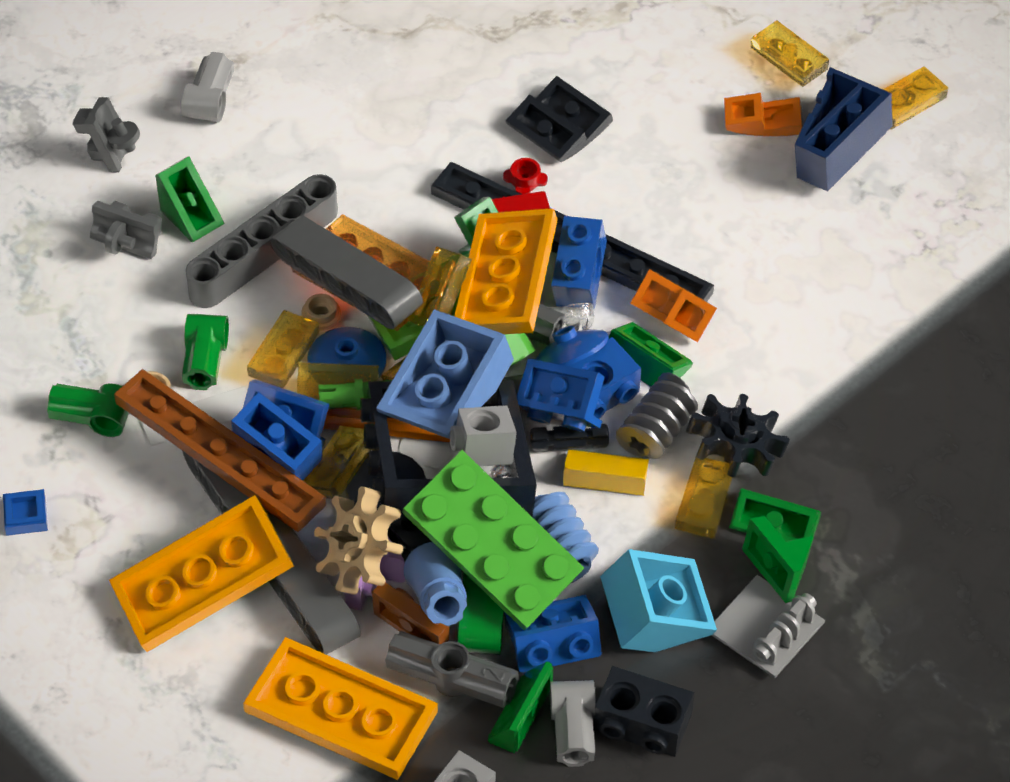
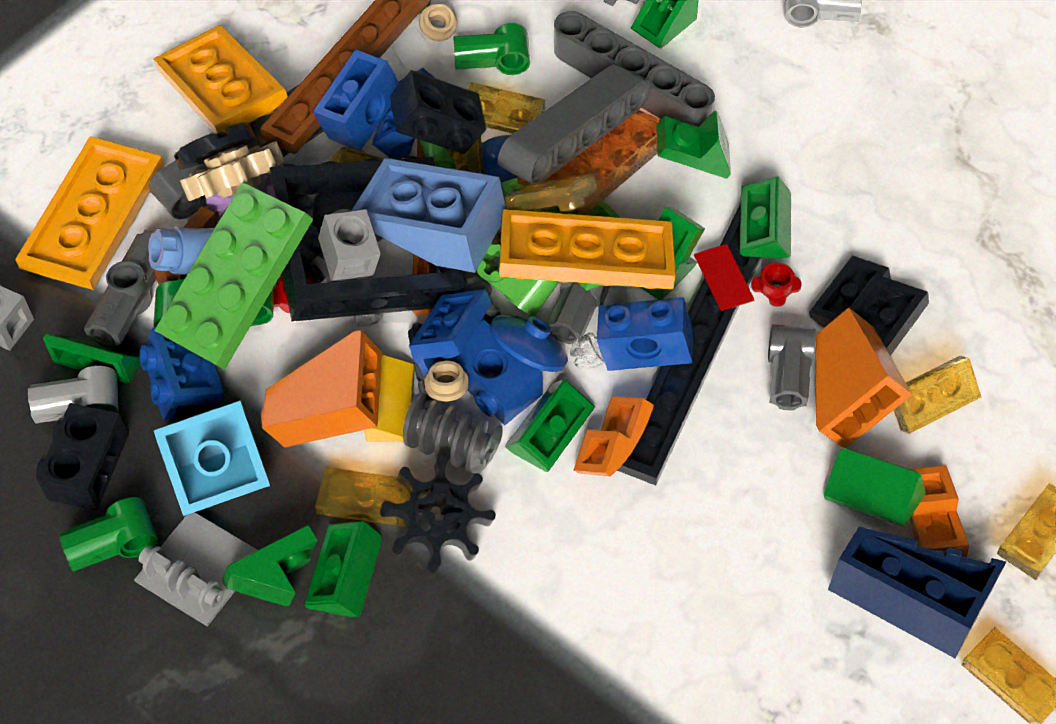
camera: 85 degrees right, 5 degrees up
(319, 369) = (437, 112): none -> black brick
(324, 554) = (209, 145): none -> black tile
(370, 196) = (694, 146): none -> green slope
(461, 168) = (766, 219): none -> green slope
(560, 521) = (284, 358): medium blue piece -> none
(603, 175) = (791, 356): none -> dark grey piece
(614, 496) = (327, 394): none -> orange slope
(616, 397) = (446, 381): none -> tan plate
(641, 130) = (854, 379): none -> orange slope
(654, 84) = (938, 394): none -> clear yellow plate
(728, 682) = (122, 532): none -> green piece
(744, 142) = (874, 487): none -> green slope

